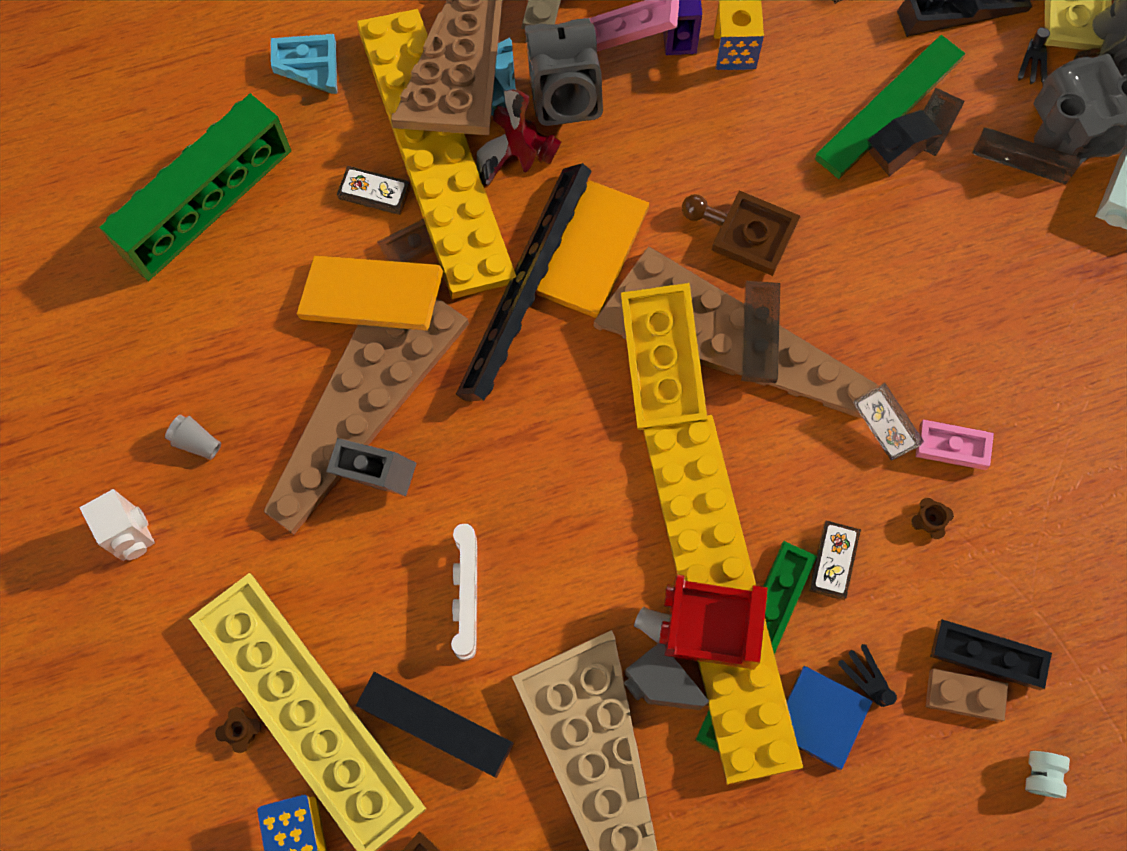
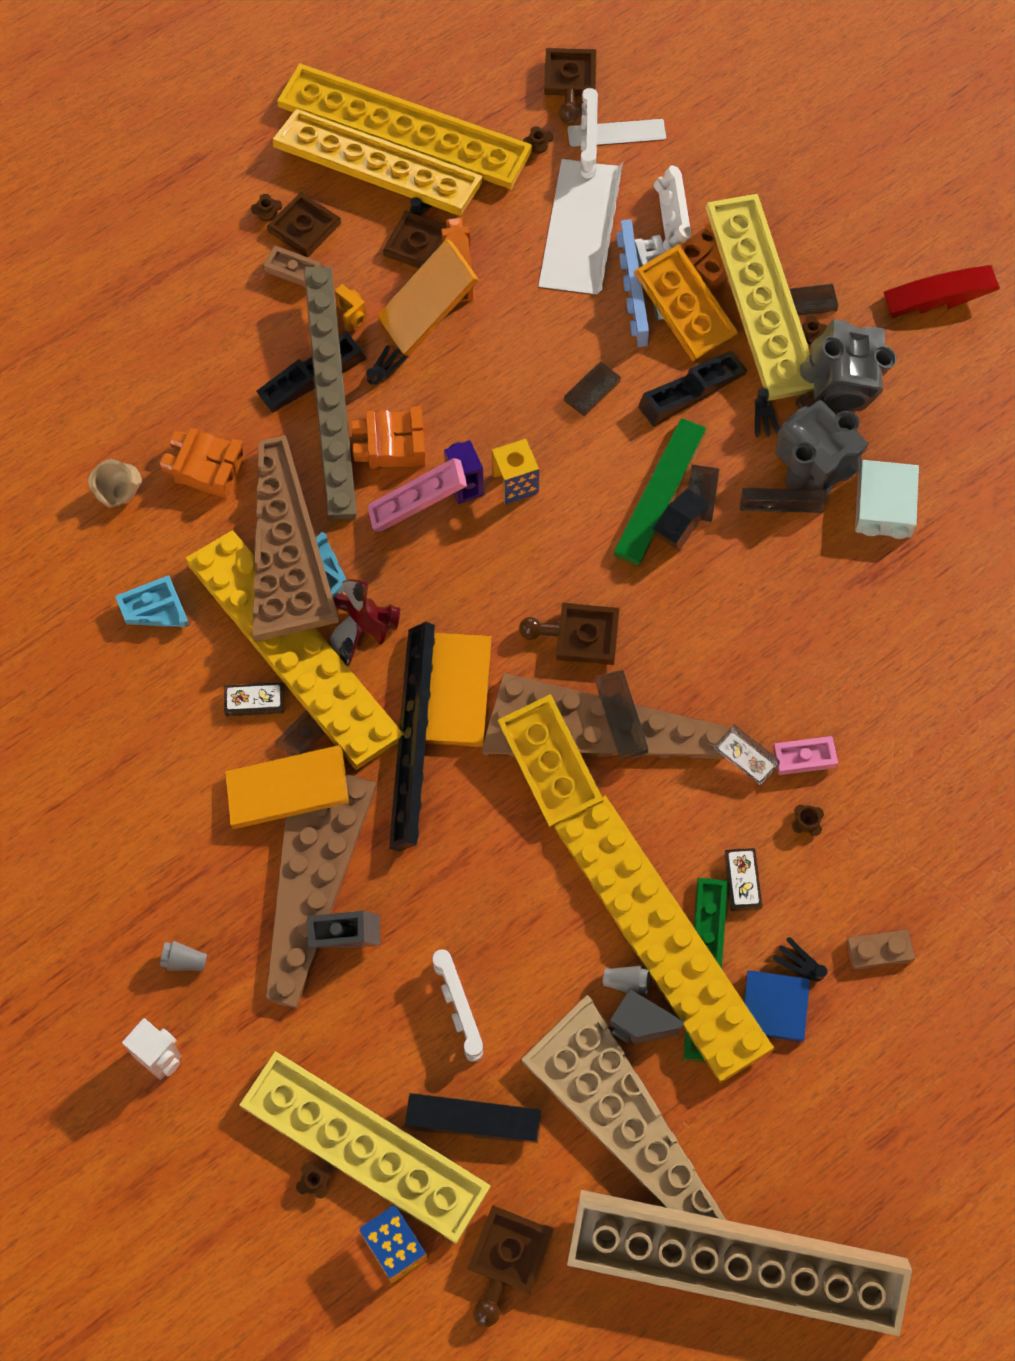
camera: 20 degrees left, 5 degrees down
(197, 187) = (105, 746): green brick -> none
(564, 72) = (383, 549): dark grey piece -> none
(714, 623) = (667, 959): red panel -> none
(991, 654) = (888, 911): black plate -> none
(1047, 774) = (960, 988): light aqua wheel -> none

